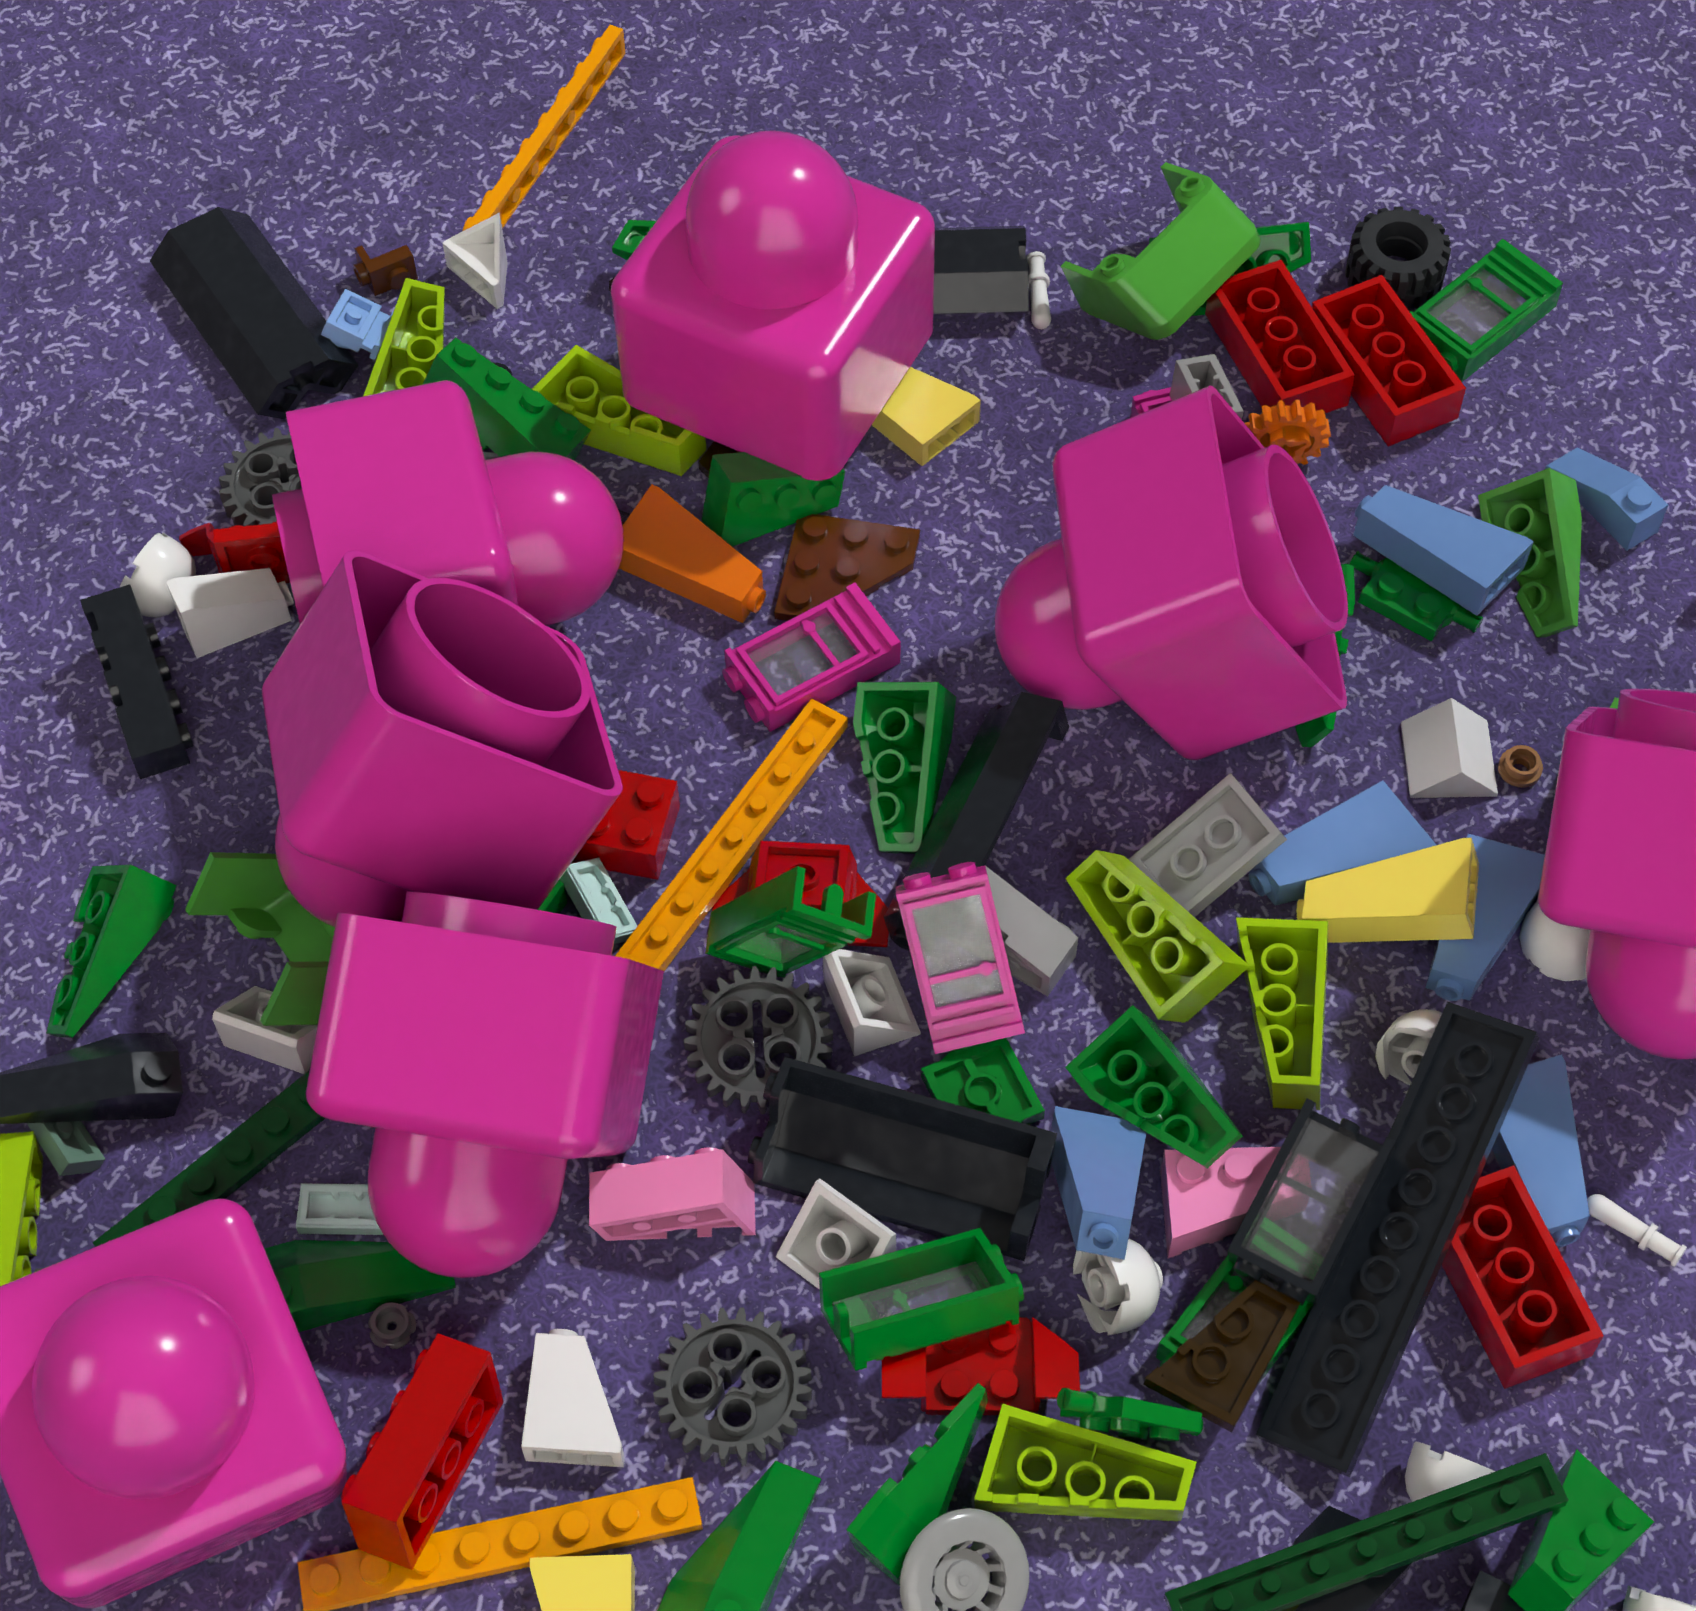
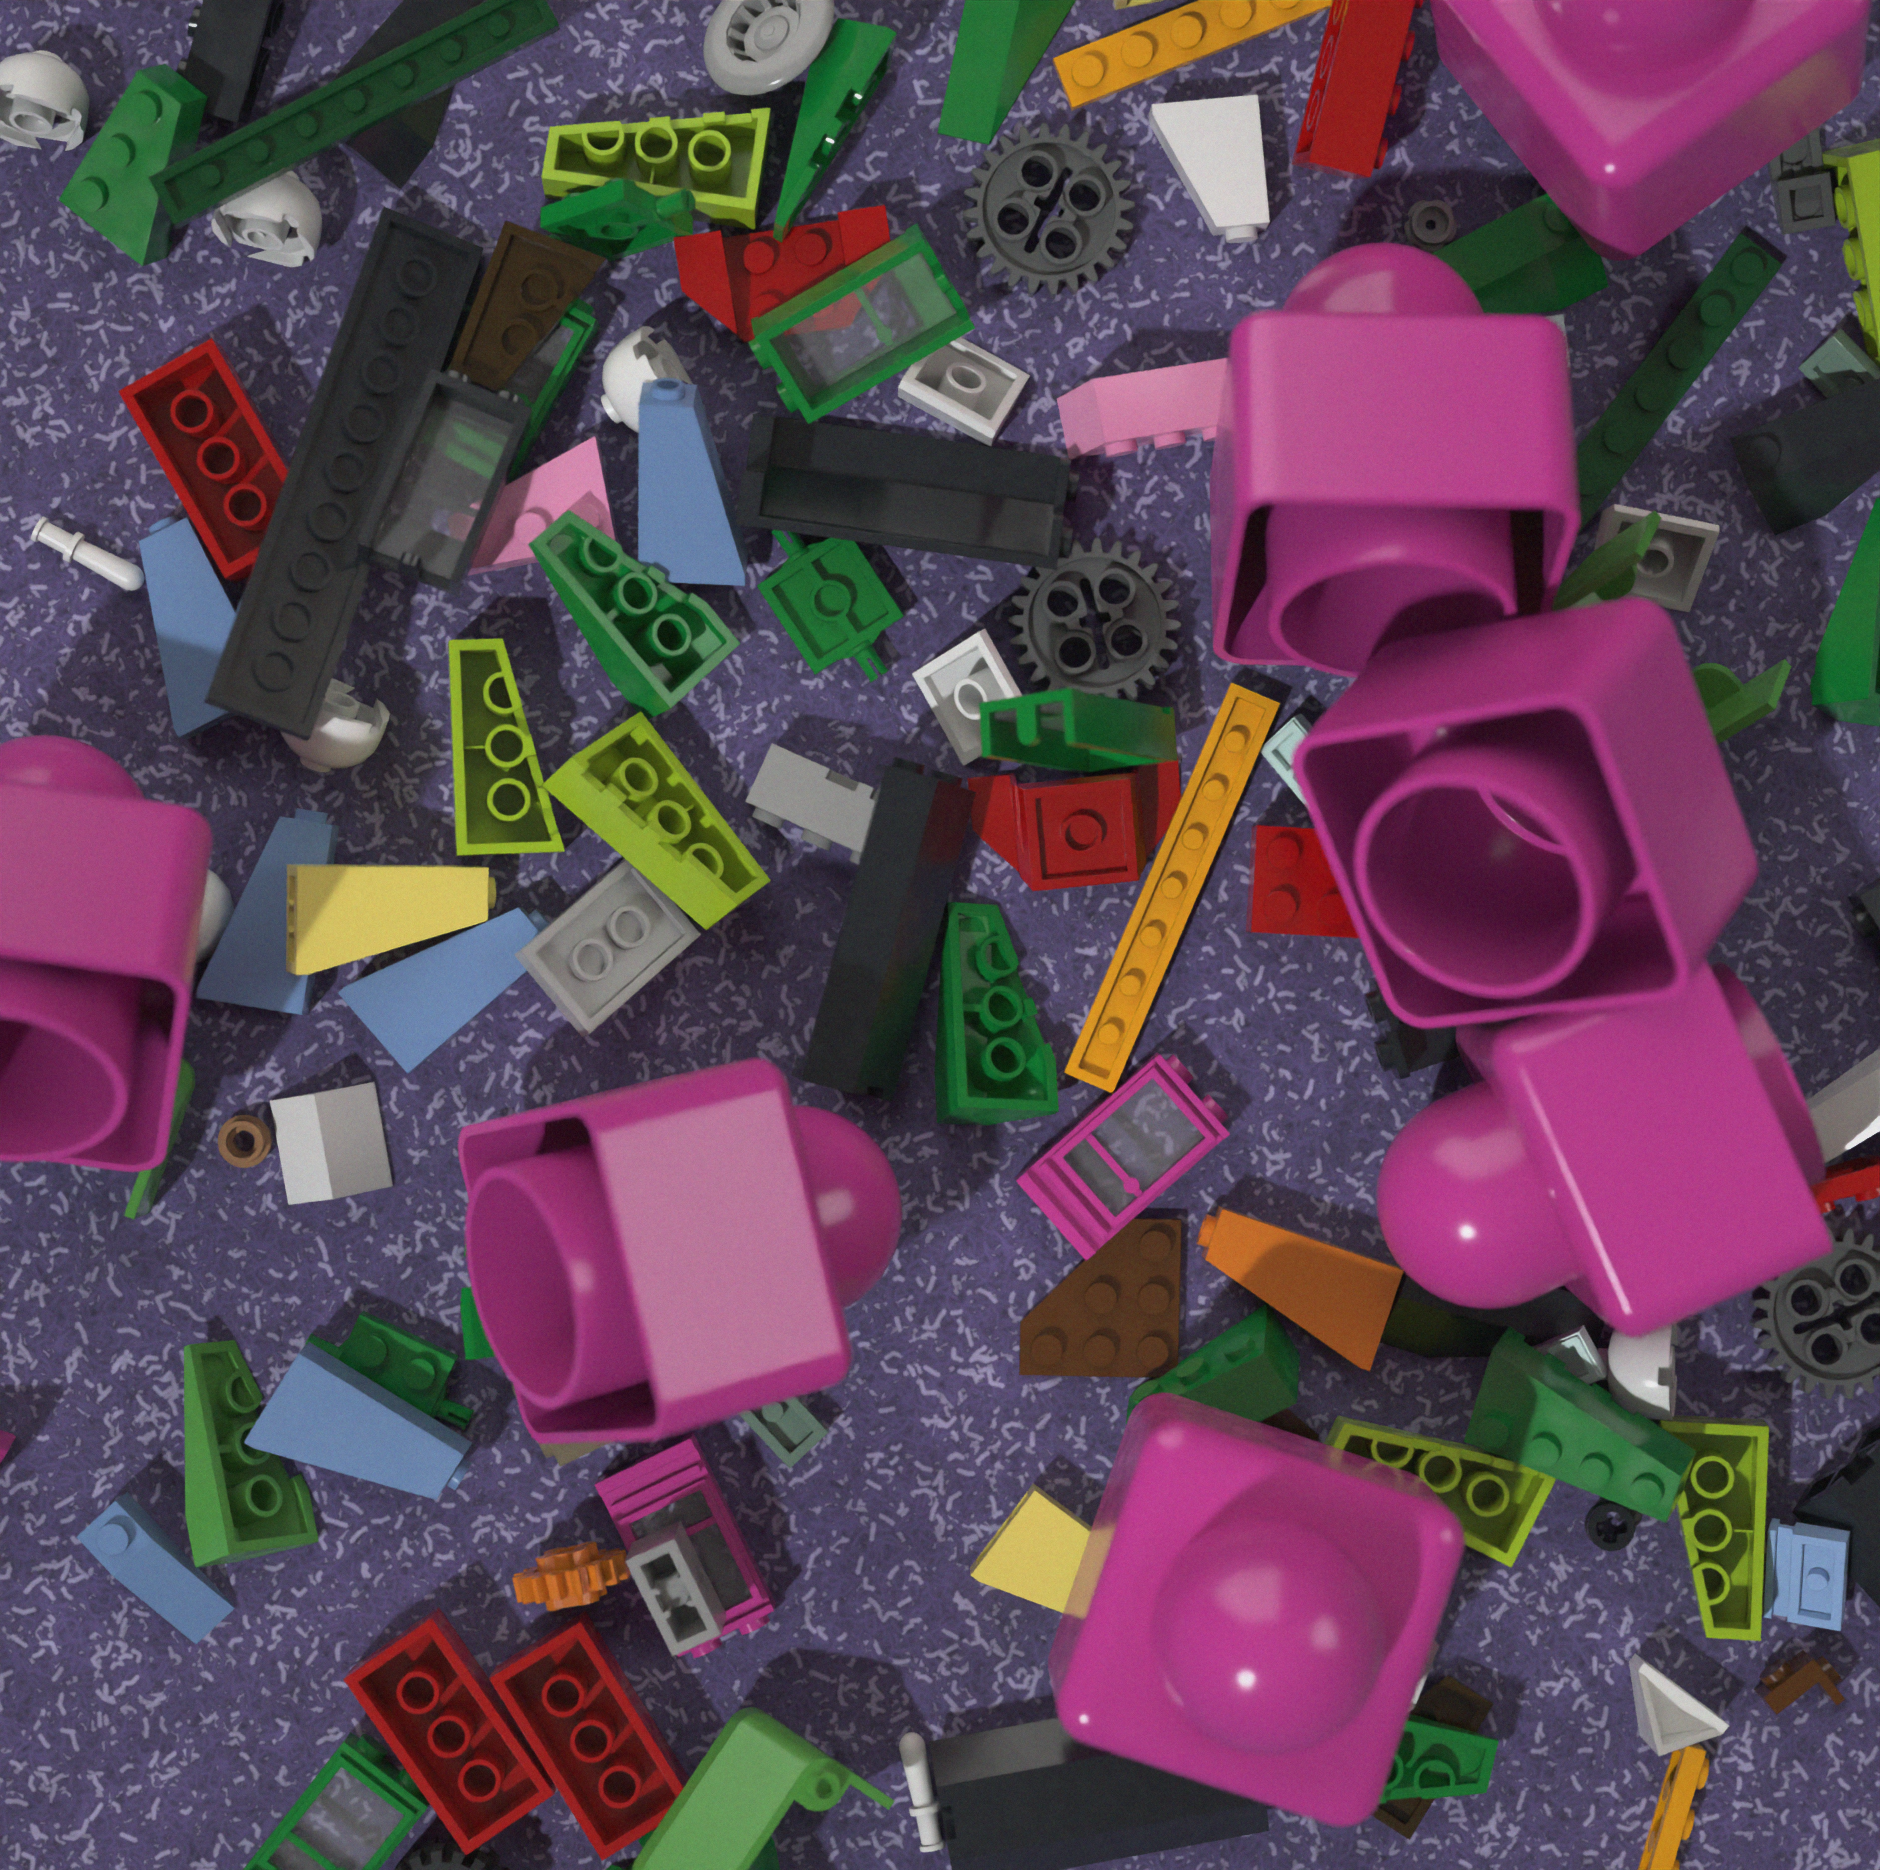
camera: 170 degrees right, 30 degrees up
(959, 957) = (876, 731): dark pink door -> none

